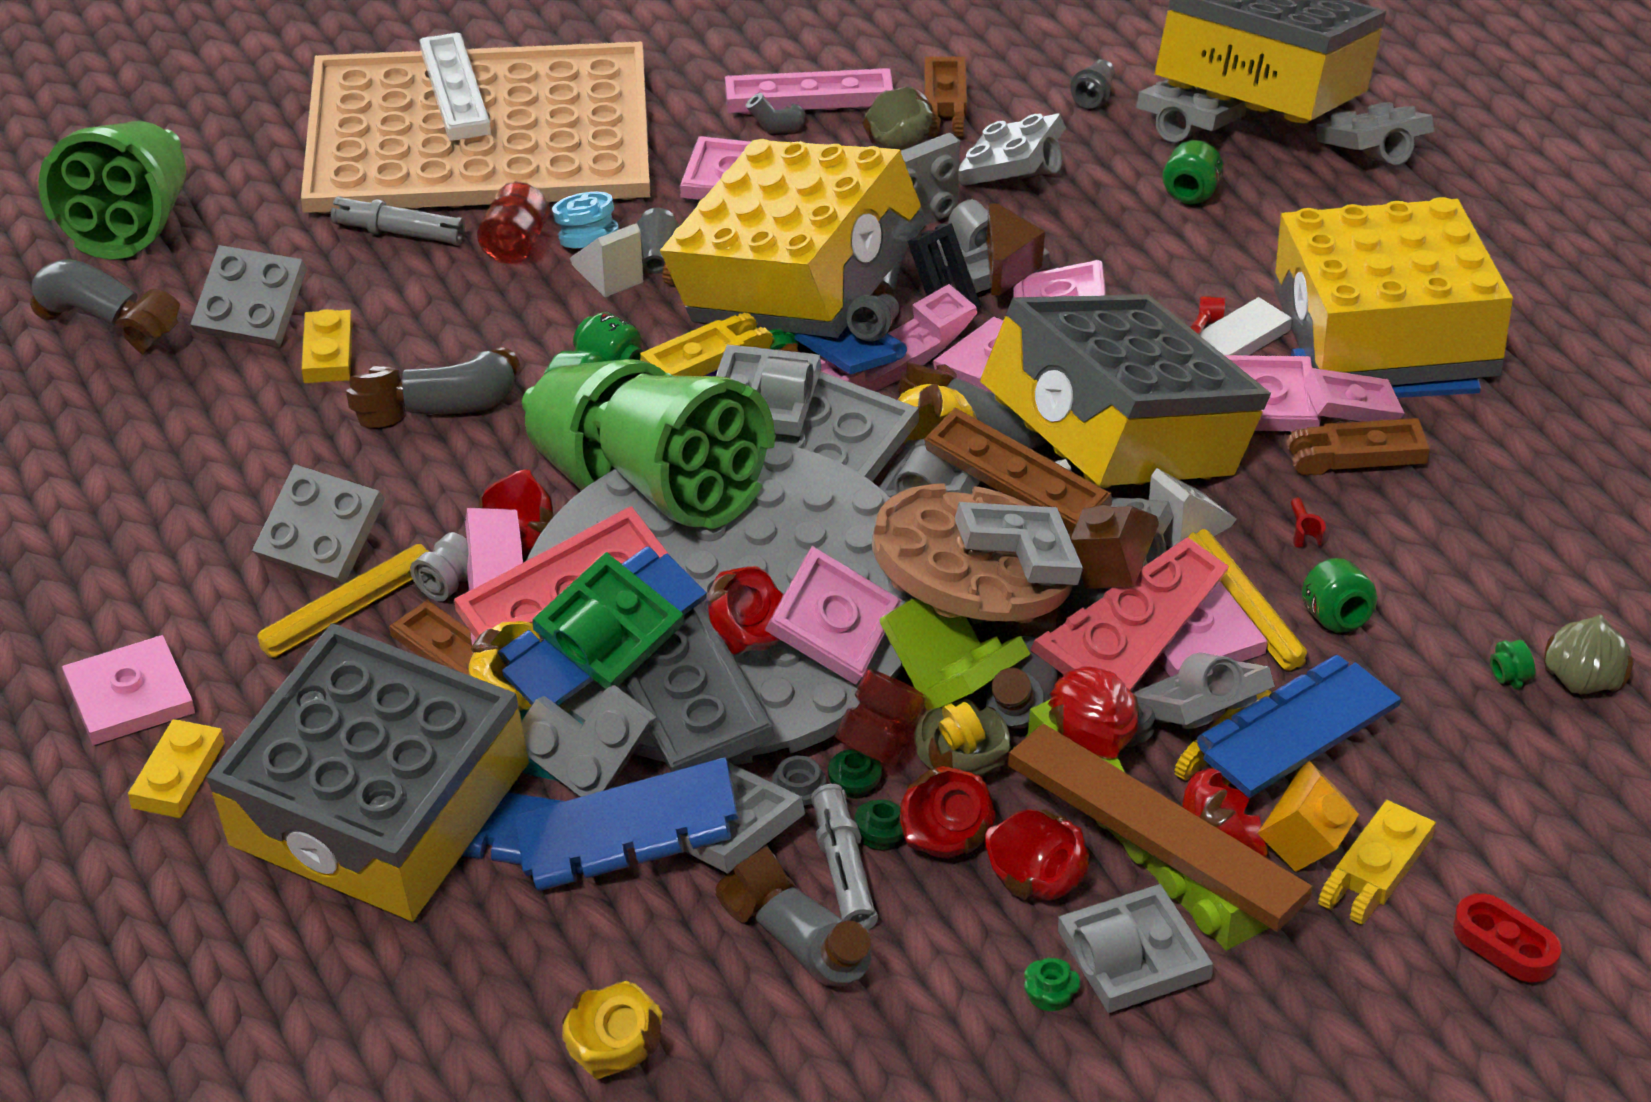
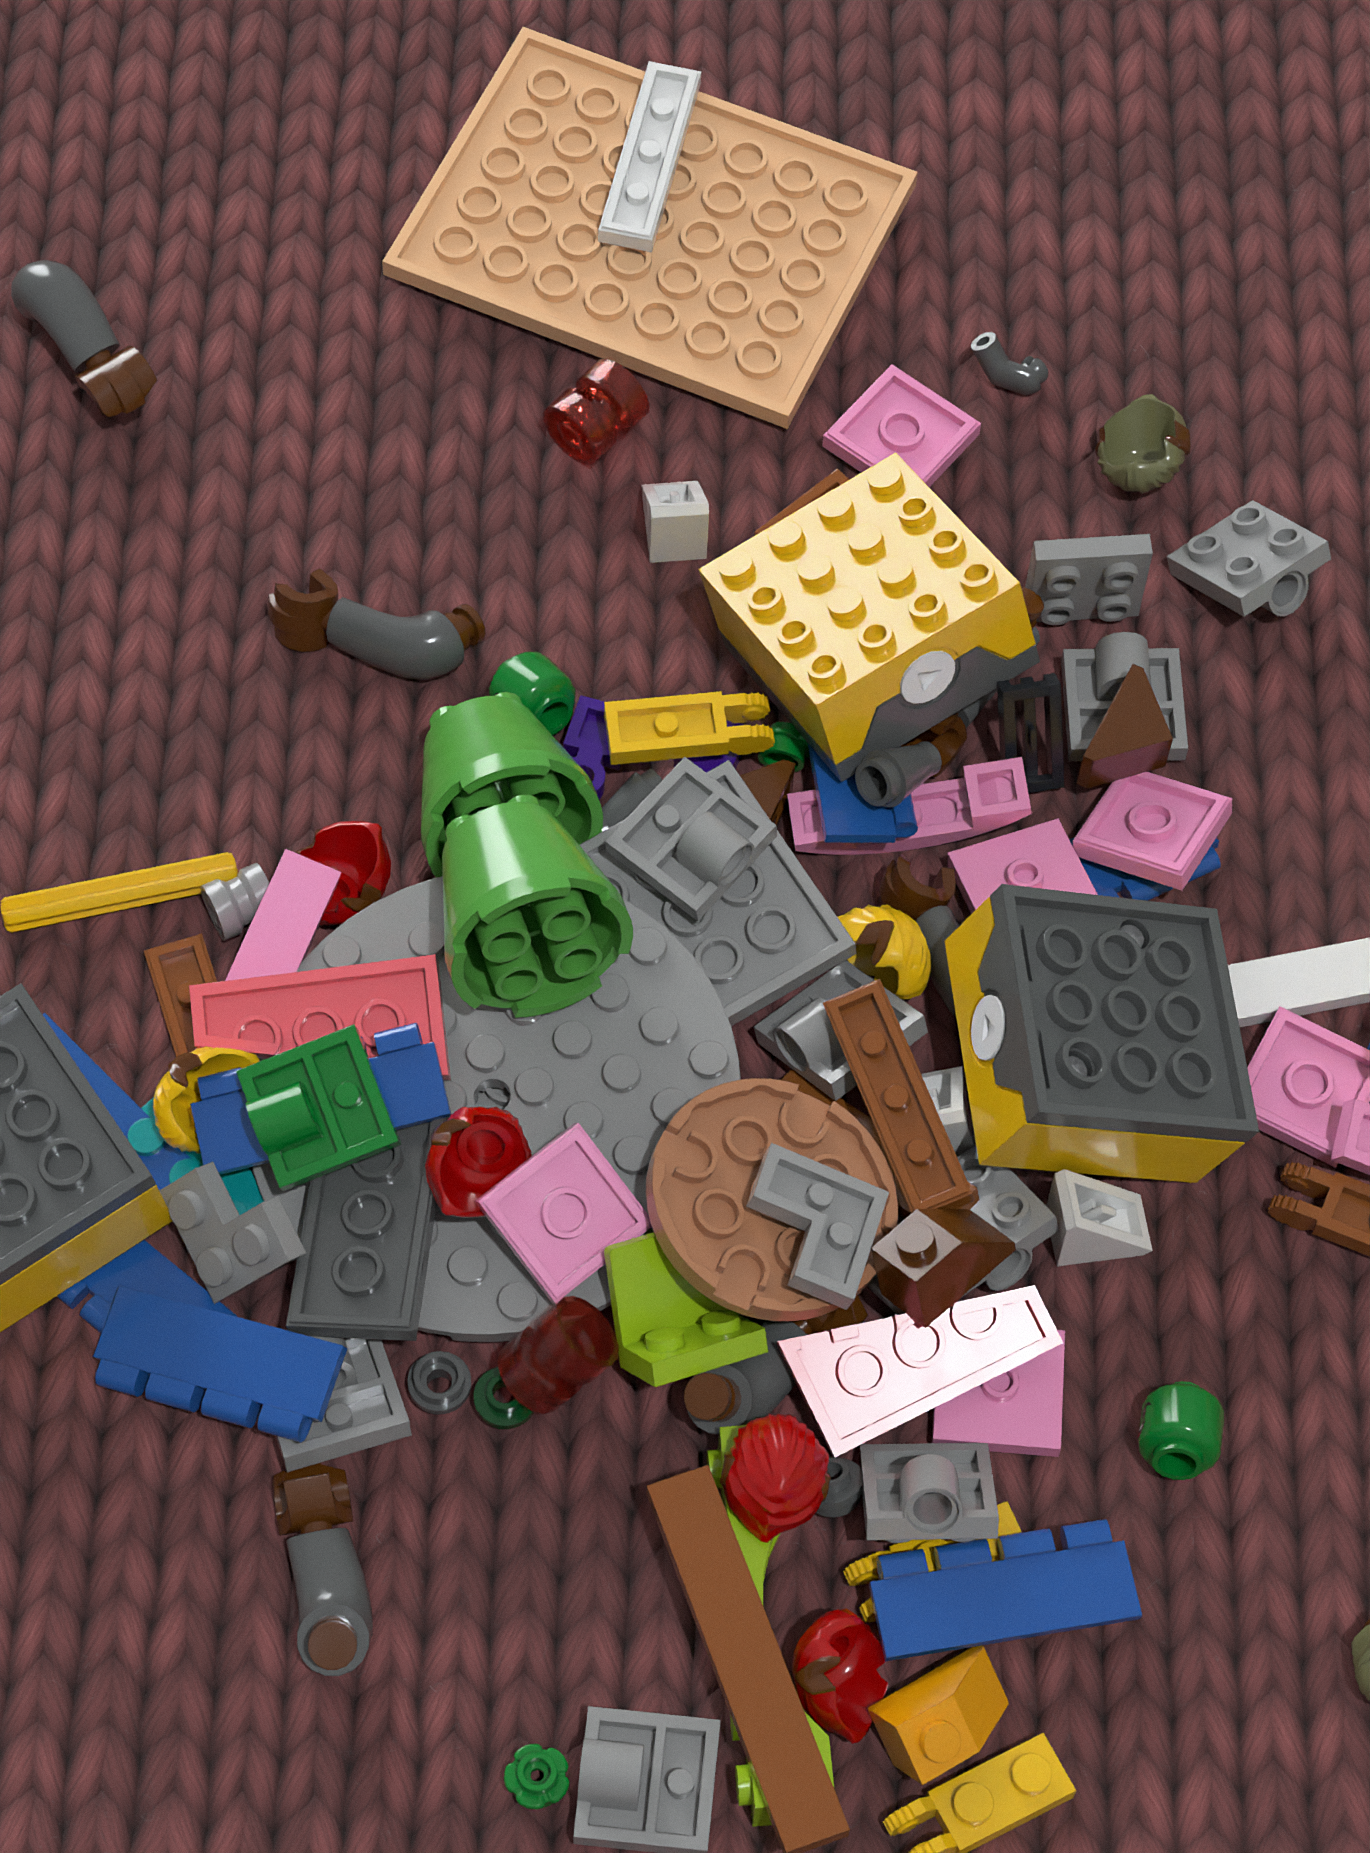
camera: 25 degrees right, 20 degrees up
(113, 186) = (180, 160): bright green cone -> none
(249, 296) = (244, 393): light grey plate -> none
(319, 524) = (139, 777): light grey plate -> none
(327, 346) = (299, 500): yellow plate -> none
(381, 218) = (458, 327): light grey pin -> none
(584, 218) = (680, 440): medium azure wheel -> none
(608, 337) = (594, 656): green head -> none
(612, 1028) = (59, 1609): yellow hair -> none
(656, 229) = (751, 503): dark grey cone -> none
(809, 89) = (1073, 340): bright pink plate -> none
(839, 839) = (432, 1482): light grey pin -> none
(879, 824) = (485, 1497): dark green plate -> none
(946, 91) = (1237, 417): dark orange hinge -> none
(946, 812) = (553, 1513): red hair -> none
(961, 727) = (629, 1416): yellow plate -> none
(983, 762) = (630, 1424): olive hair -> none
(1037, 854) = (613, 1617): red hair -> none
(1210, 311) = (1327, 923): red hand -> none
(1280, 639) = (1081, 1375): yellow axle -> none
(1306, 524) = (1225, 1295): red hand -> none
(1512, 663) = (1316, 1621): green plate -> none

